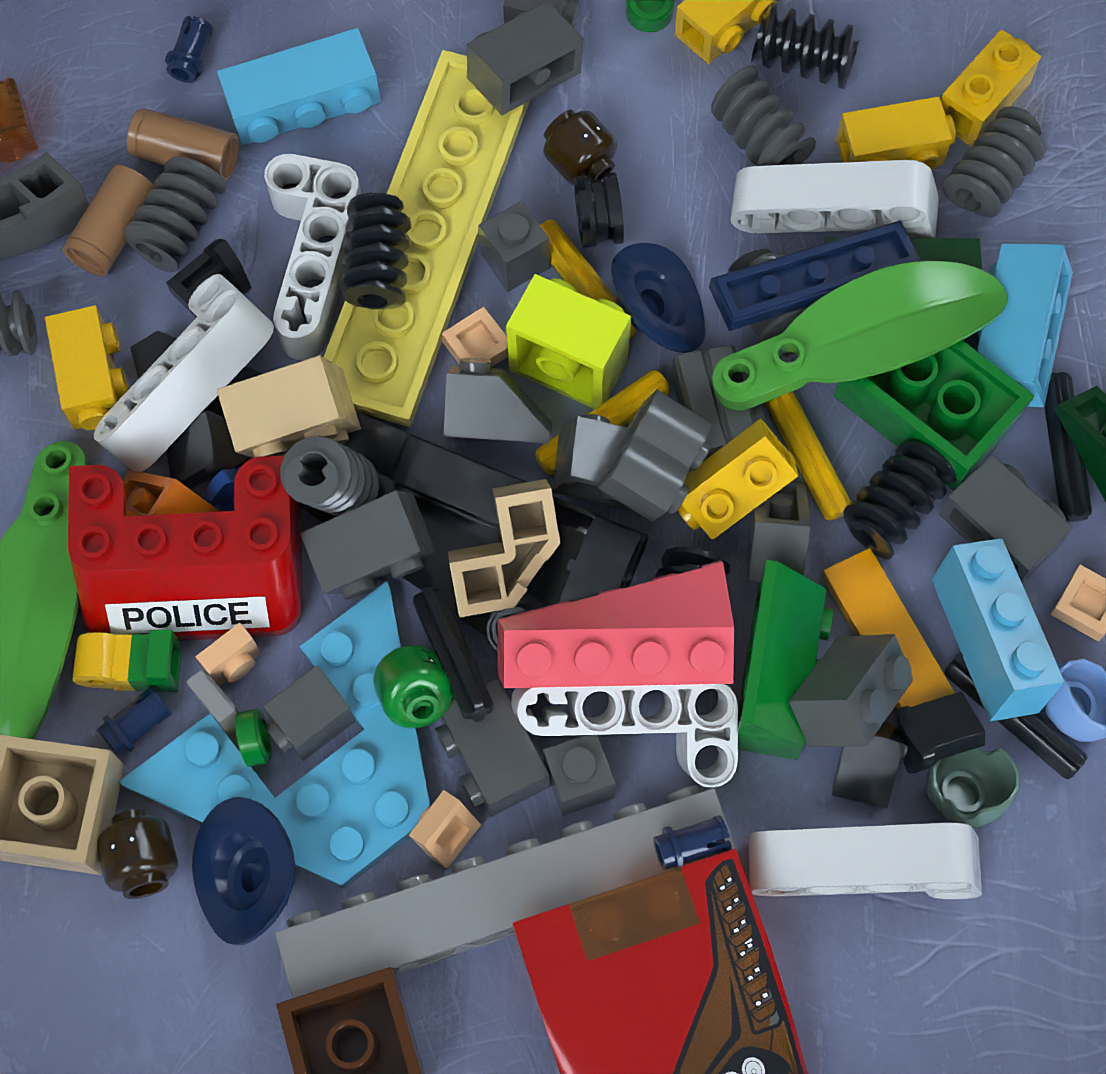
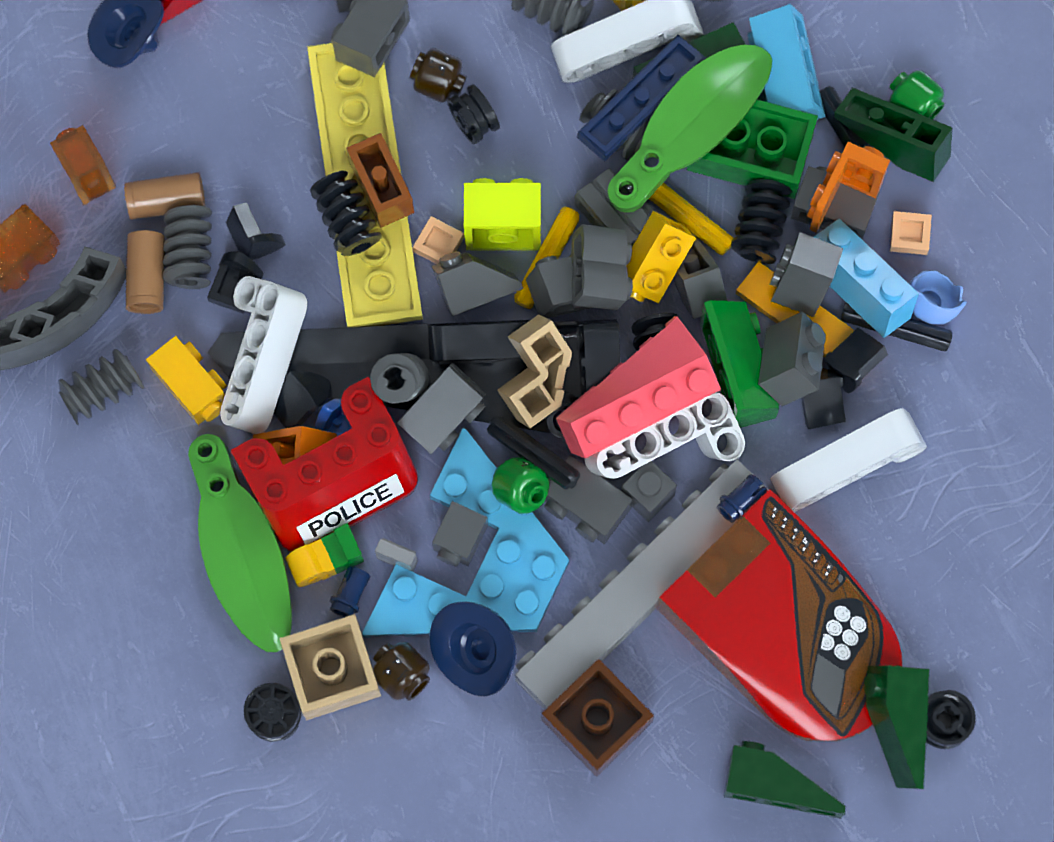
camera: 25 degrees left, 5 degrees up
(102, 63) = (82, 164): none -> clear orange brick
(185, 59) = (128, 125): dark blue pin -> none
(229, 656) = (390, 522): light nougat plate -> none
(252, 737) = (433, 565): green tile -> none
(253, 245) = (248, 235): none -> black tile
(288, 405) = (349, 346): tan brick -> none
(300, 87) = (223, 118): medium azure brick -> none
(310, 259) = (297, 234): white beam -> none
(437, 230) = (380, 180): none -> dark orange brick
(444, 829) = (582, 564): light nougat plate -> none
(514, 246) = (429, 165): dark grey brick -> none
(574, 267) = (476, 161): yellow axle -> none
(659, 296) = (544, 156): dark blue hat -> none
(921, 586) = (805, 273): none -> dark grey brick
(974, 786) = (892, 383): sand green hair -> none
(1051, 477) = (854, 167): none -> orange bracket

